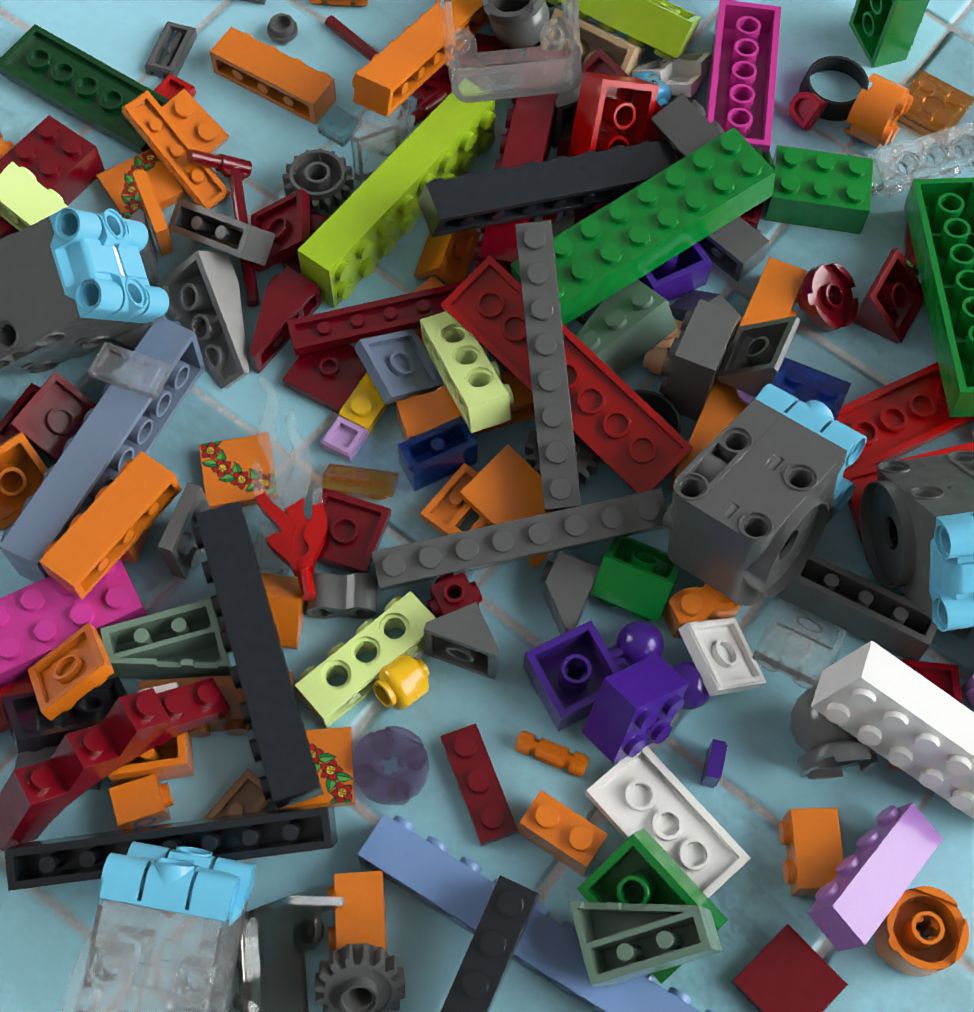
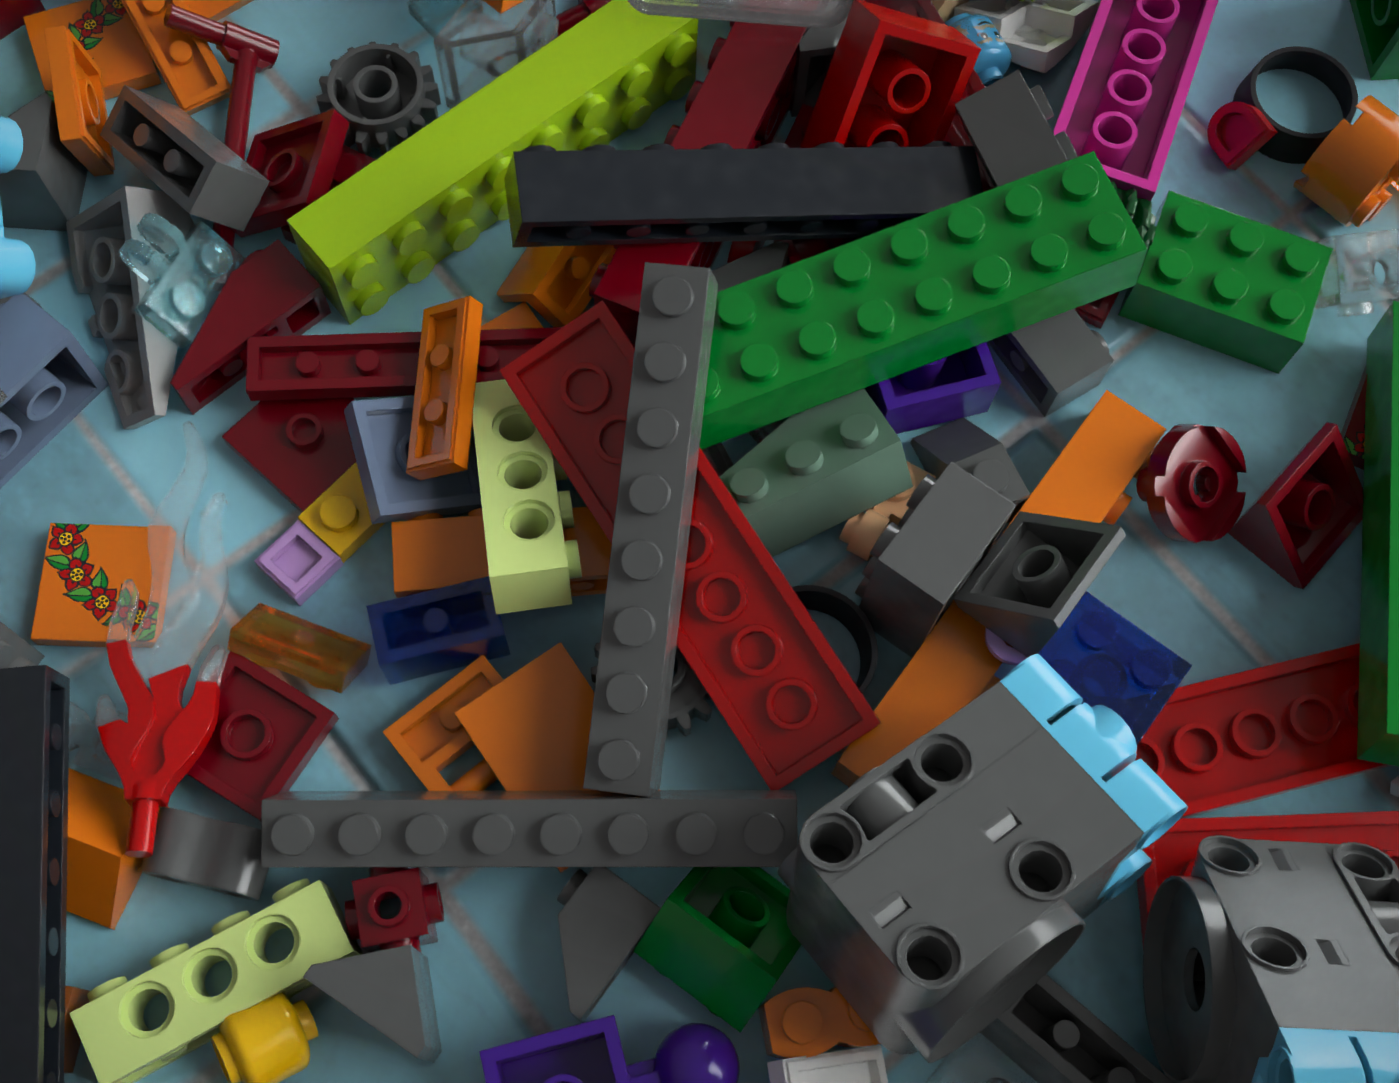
camera: 10 degrees right, 5 degrees up
(240, 292) = (189, 281): none -> clear light blue hinge
(408, 323) = (445, 389): none -> orange tile

